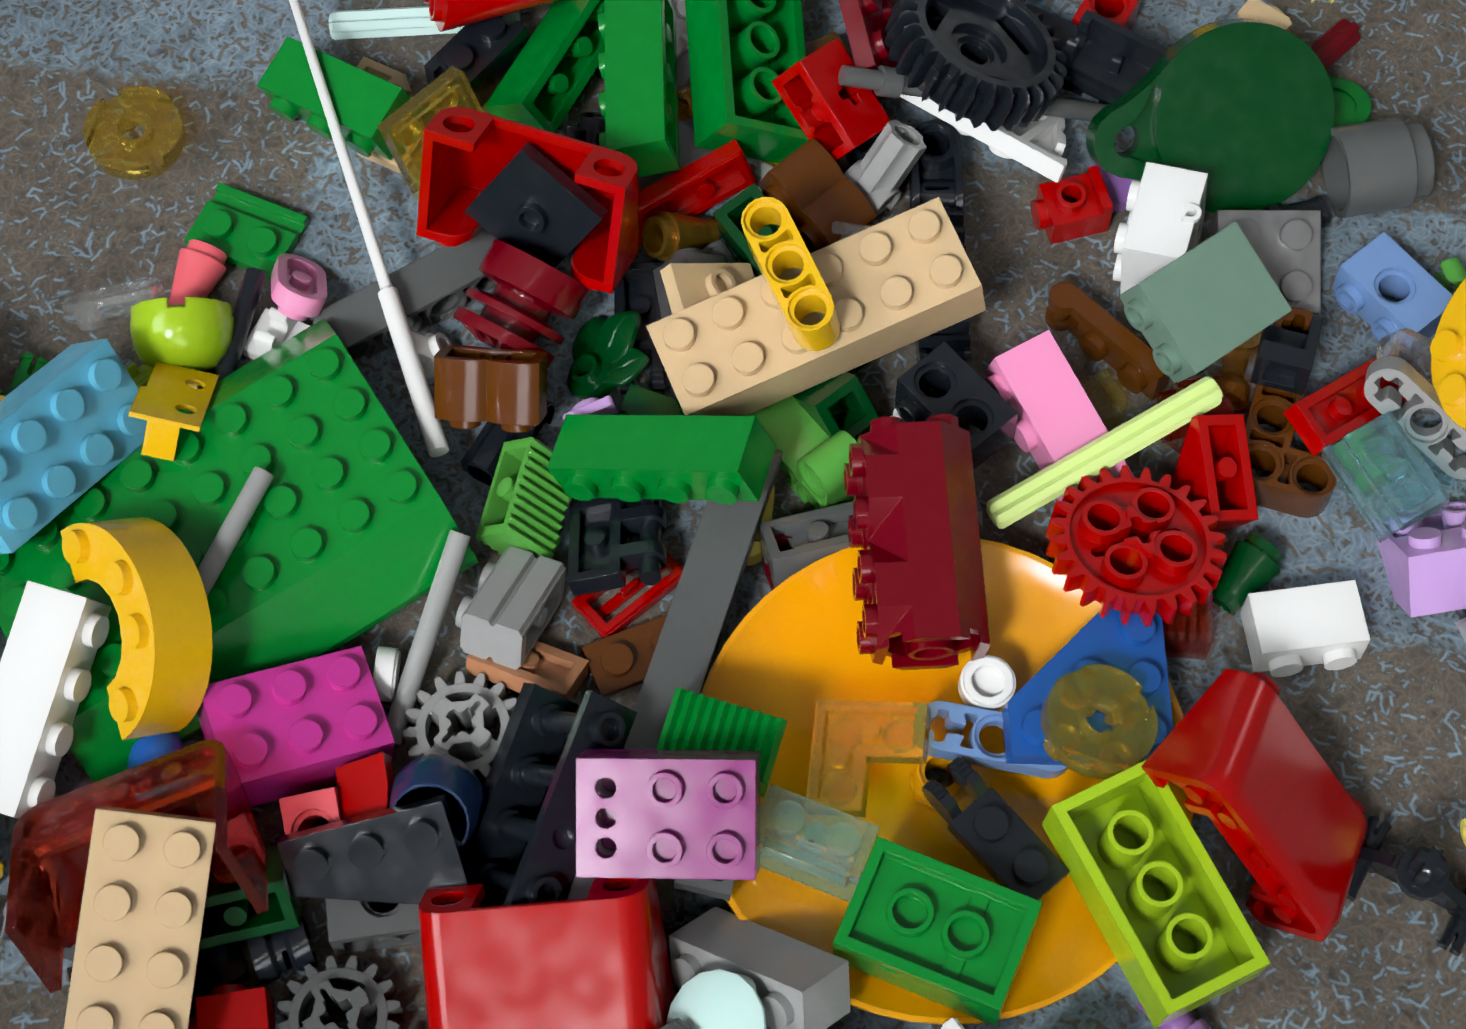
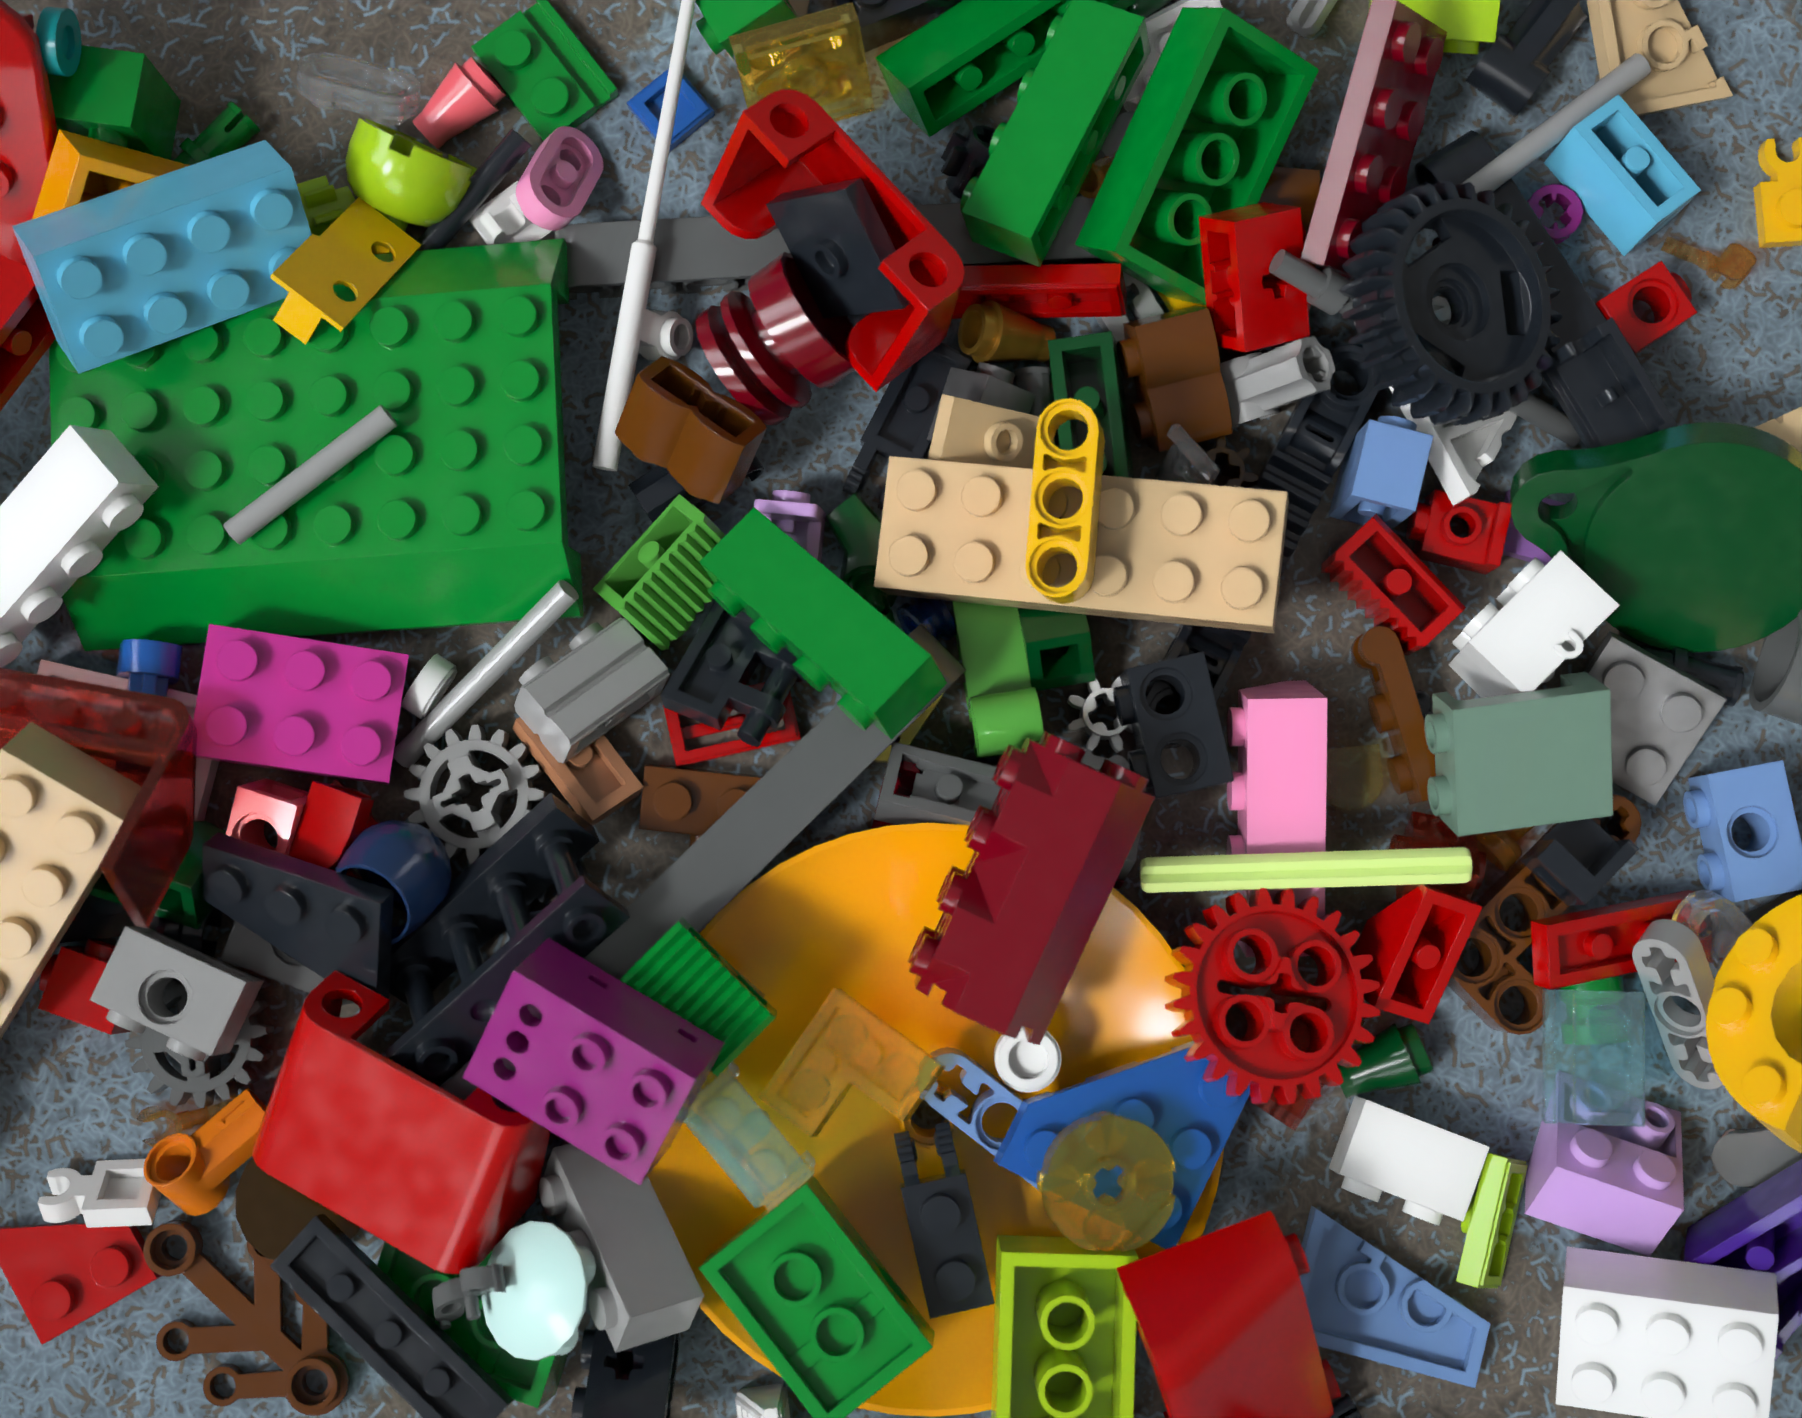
camera: 25 degrees right, 20 degrees up
(159, 615) = (191, 522): yellow brick -> none
(279, 955) = (135, 985): none -> light grey brick
(341, 216) = (690, 114): none -> blue tile
(605, 355) = (851, 434): dark green plate -> none
(996, 190) = (1382, 472): none -> medium blue brick
(1043, 254) = (1392, 585): none -> red brick
(1374, 740) = (1384, 1311): none -> medium blue wing
(1391, 640) = (1491, 1221): none -> lime plate

